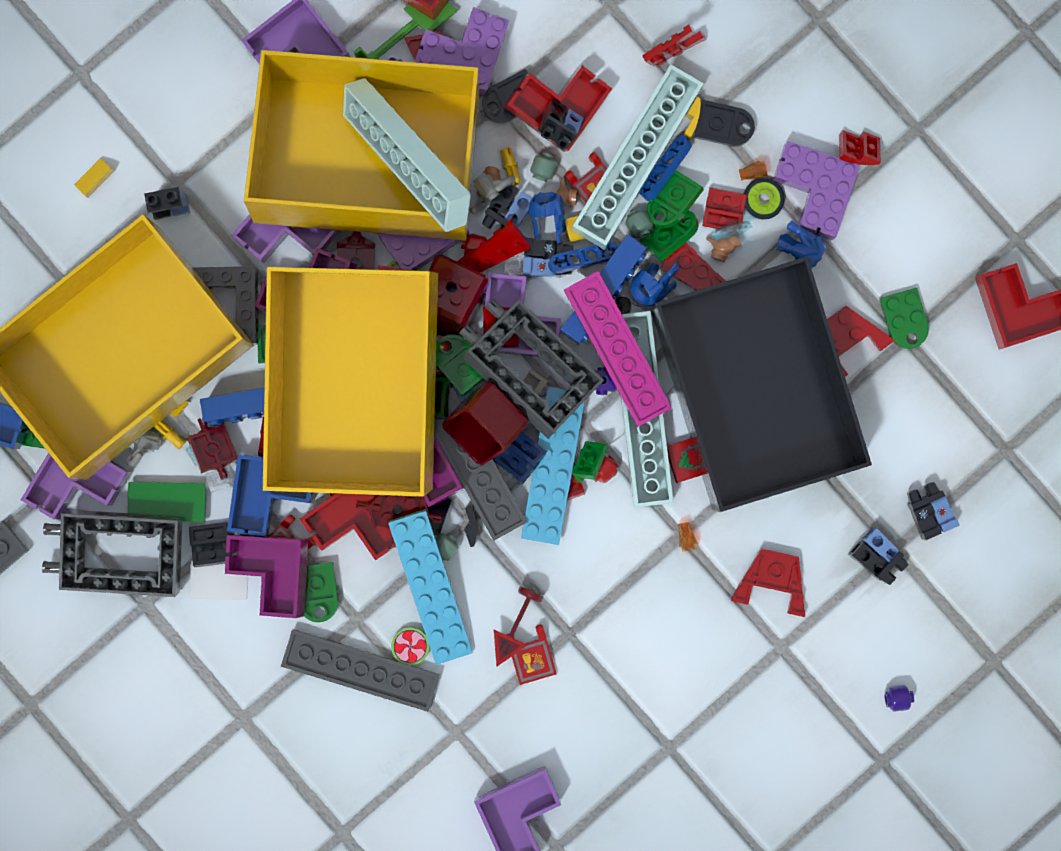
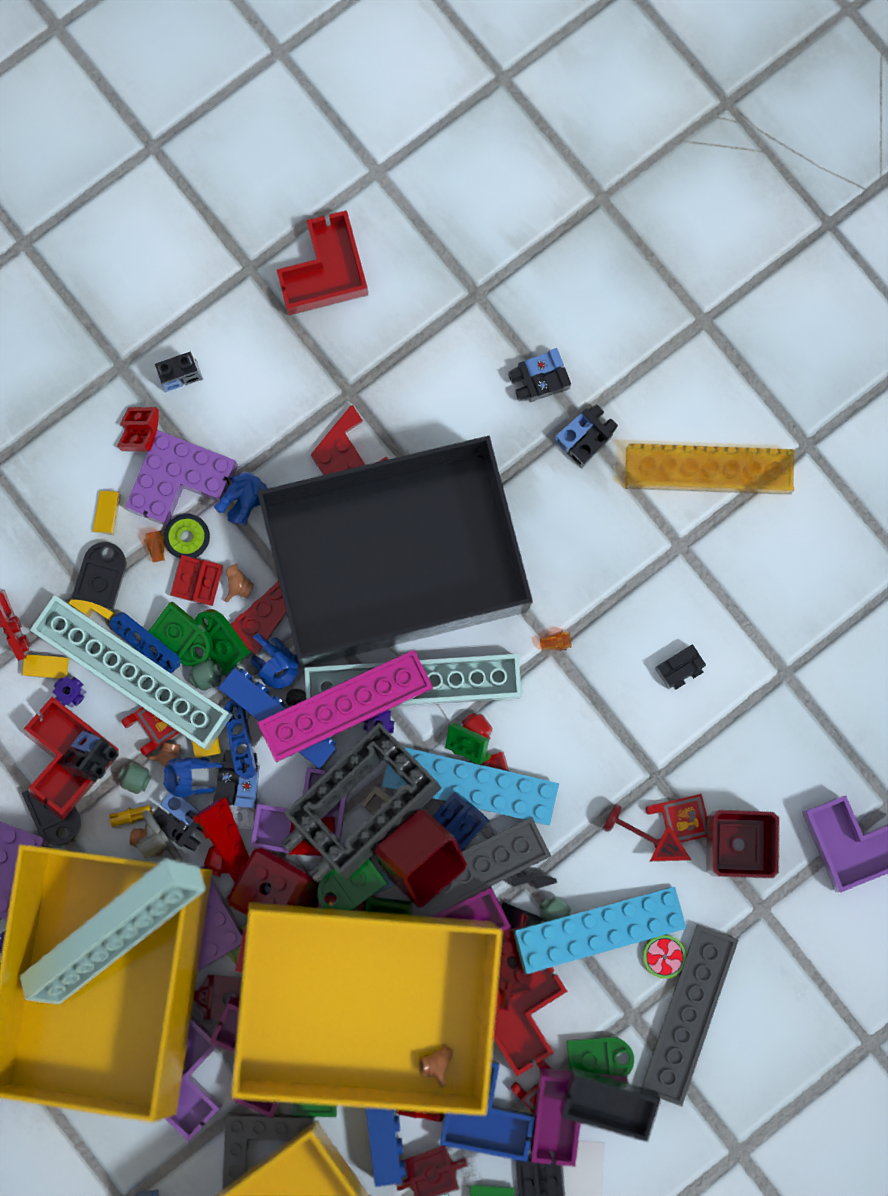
camera: 85 degrees left, 5 degrees down
(278, 601) = (610, 1104): none -> black piece
(306, 446) = (436, 1064): none -> nougat animal
(509, 729) = (761, 840): none -> dark red plate
(614, 109) = (76, 694): none -> dark purple brick
(638, 81) = (45, 666): none -> yellow slope
(669, 651) = (680, 667): none -> black brick
(683, 461) = (472, 640): red slope -> none
(736, 227) = (217, 567): clear light blue slope -> none
(774, 572) = (599, 546): red wing -> none
(781, 125) = (106, 512): none -> yellow slope
(854, 671) = (709, 469): none -> clear yellow tile
(898, 698) = (740, 423): dark purple head -> none
(905, 316) = (326, 391): green plate -> none
(917, 178) = (178, 368): none -> black hips

